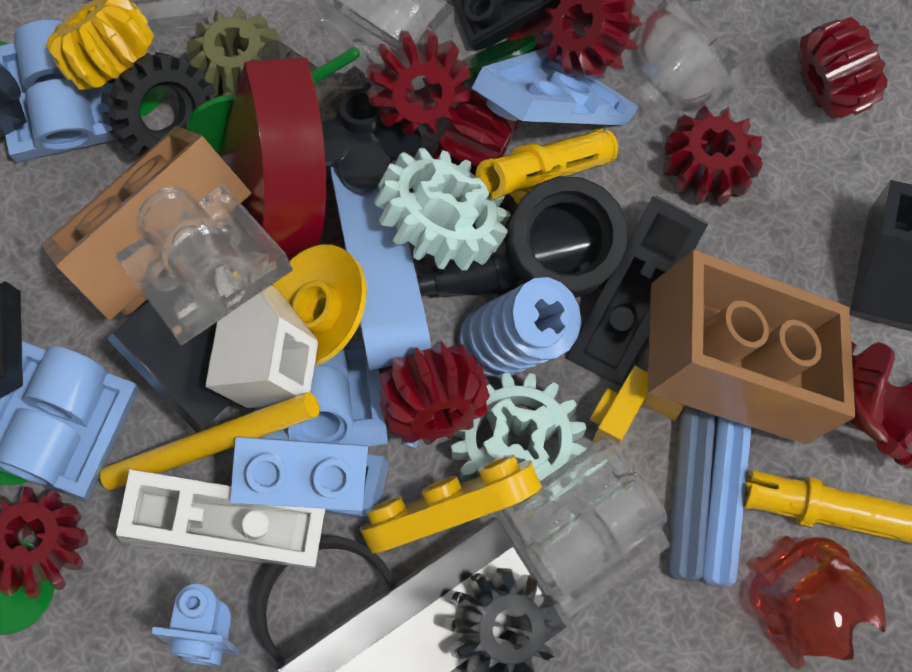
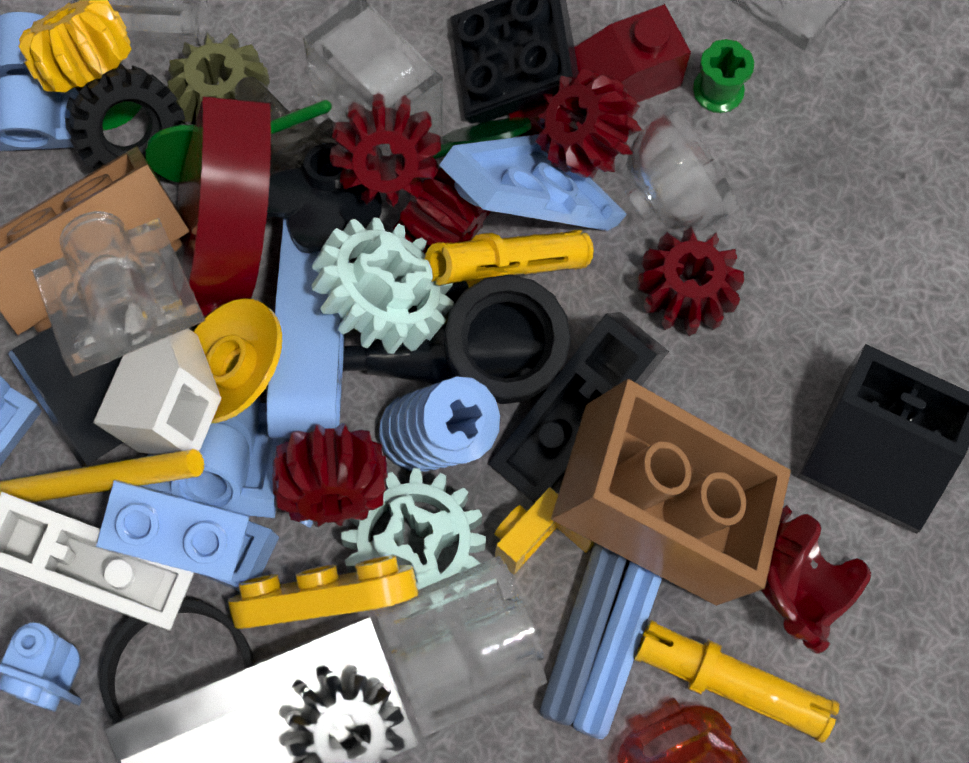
camera: 10 degrees right, 0 degrees up
(842, 68) = (848, 214): dark red gear -> none

